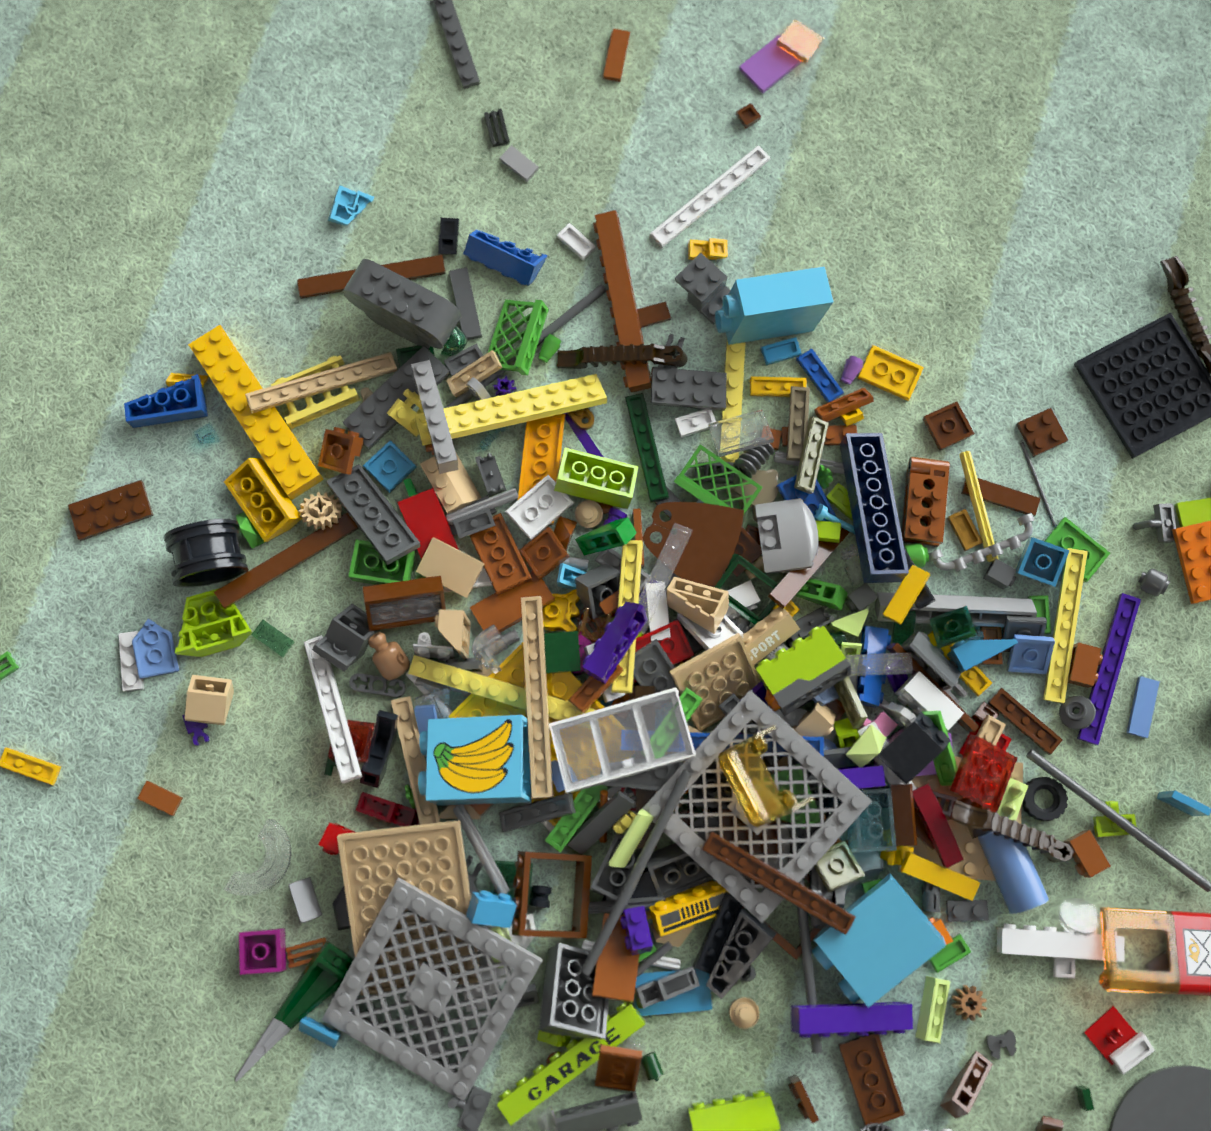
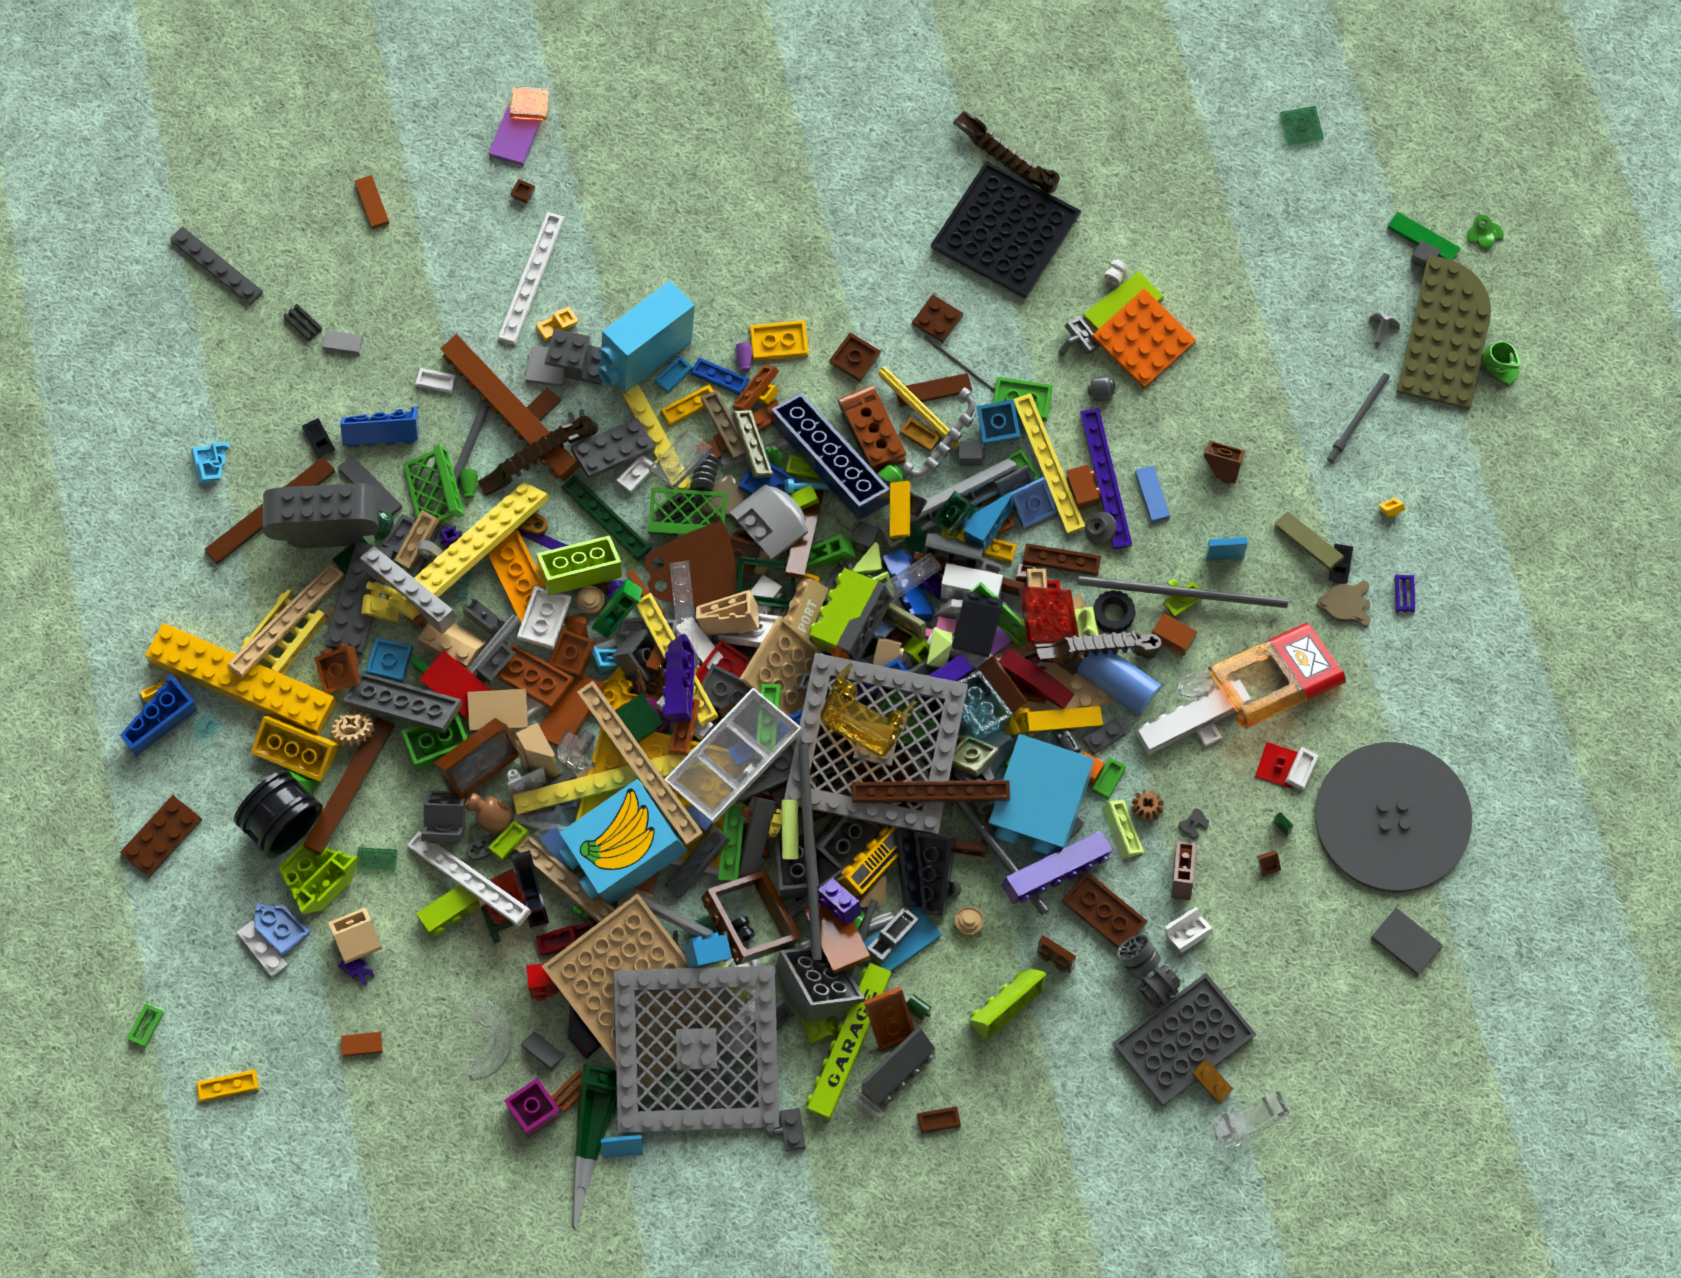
camera: 30 degrees left, 10 degrees down
(298, 722) = (447, 910): none -> lime brick
(389, 691) = (508, 840): none -> lime tile
(666, 283) = (541, 373): none -> light grey tile

